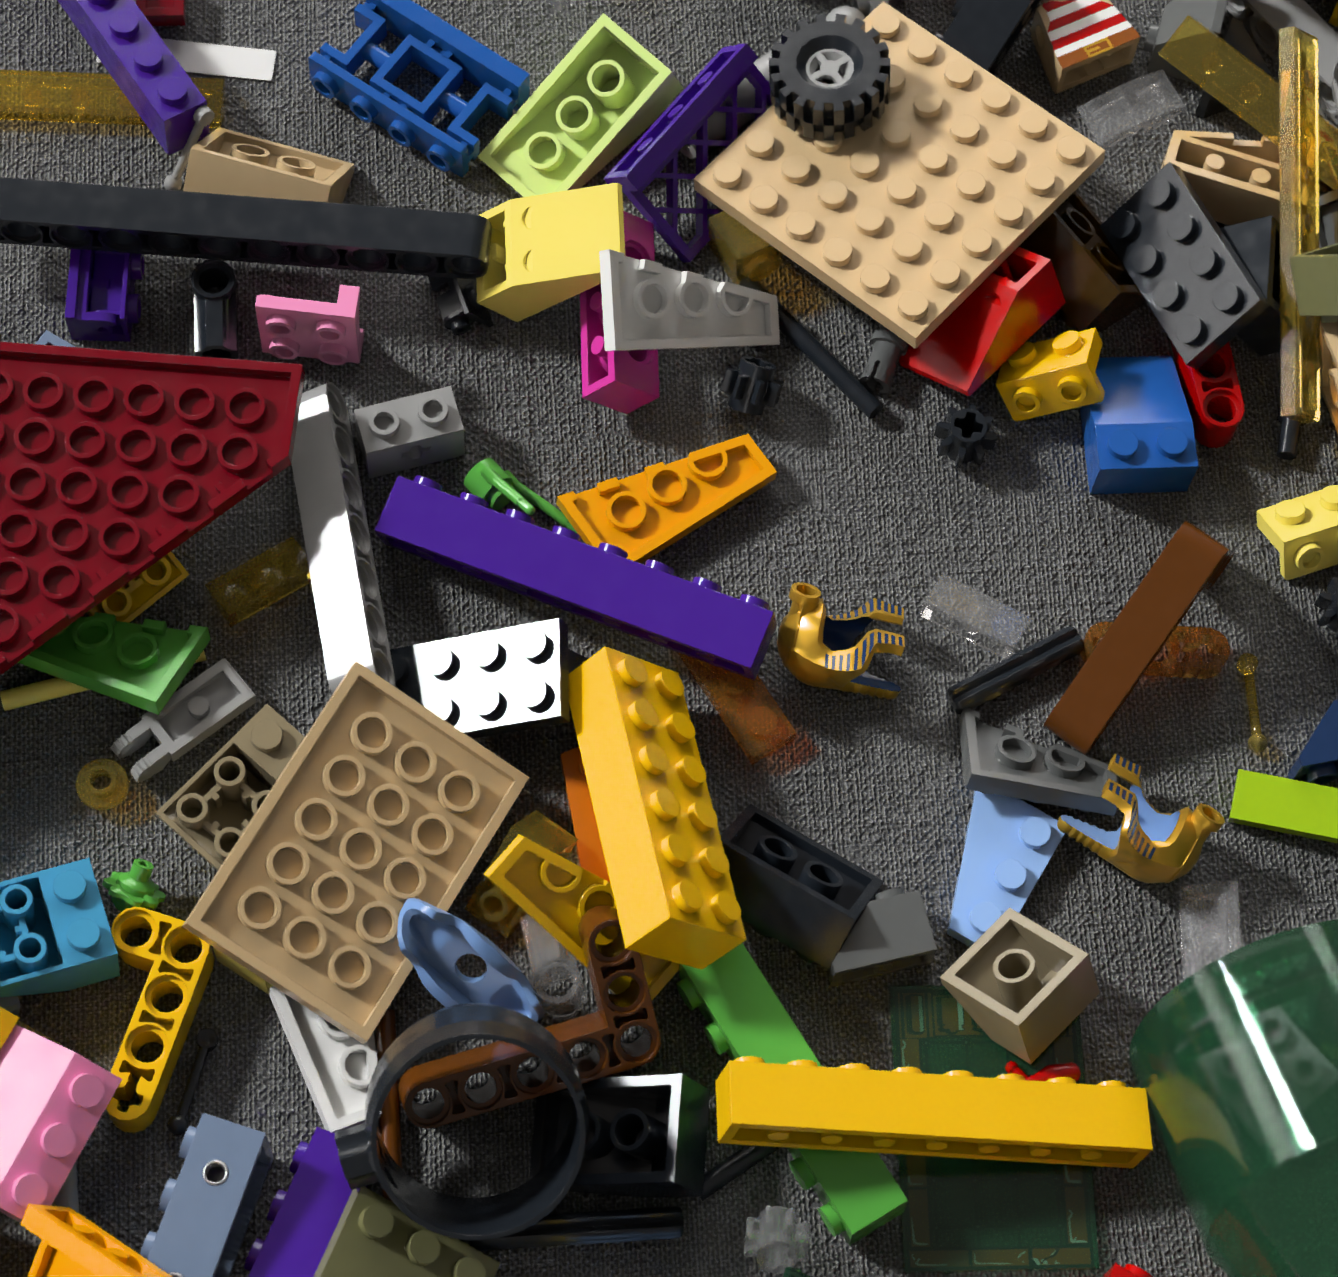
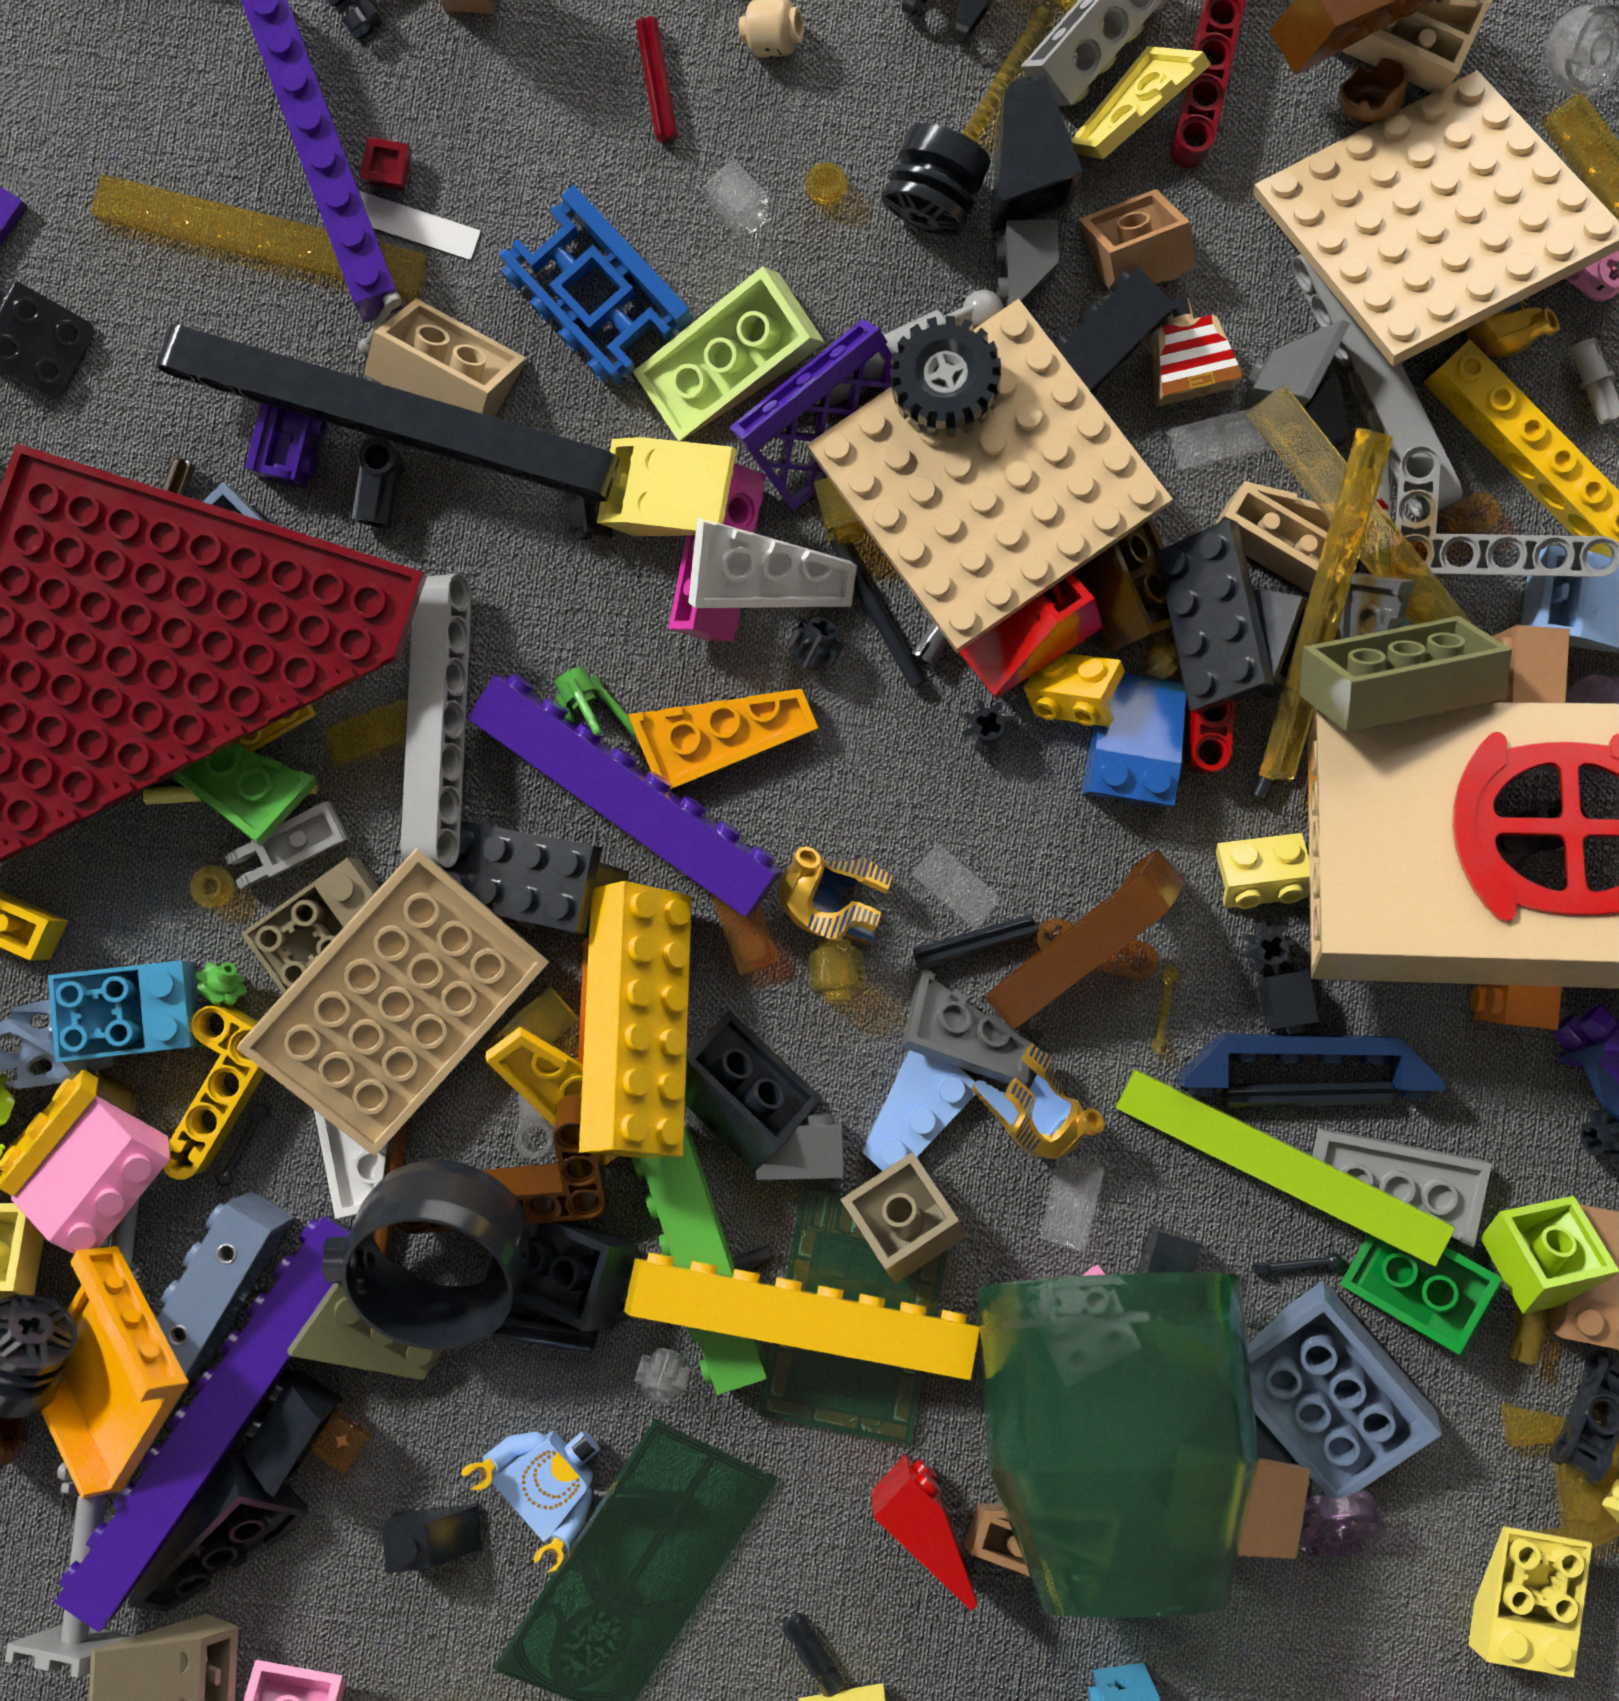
camera: 20 degrees right, 20 degrees up
(311, 327) = (469, 528): bright pink piece -> none
(409, 432) = (517, 628): light grey brick -> none
(438, 939) = (481, 1133): medium blue piece -> none
(866, 727) = (836, 971): none -> clear yellow head
(1050, 1071) = (909, 1291): red piece -> none
(1139, 332) = (1162, 659): none -> clear yellow plate

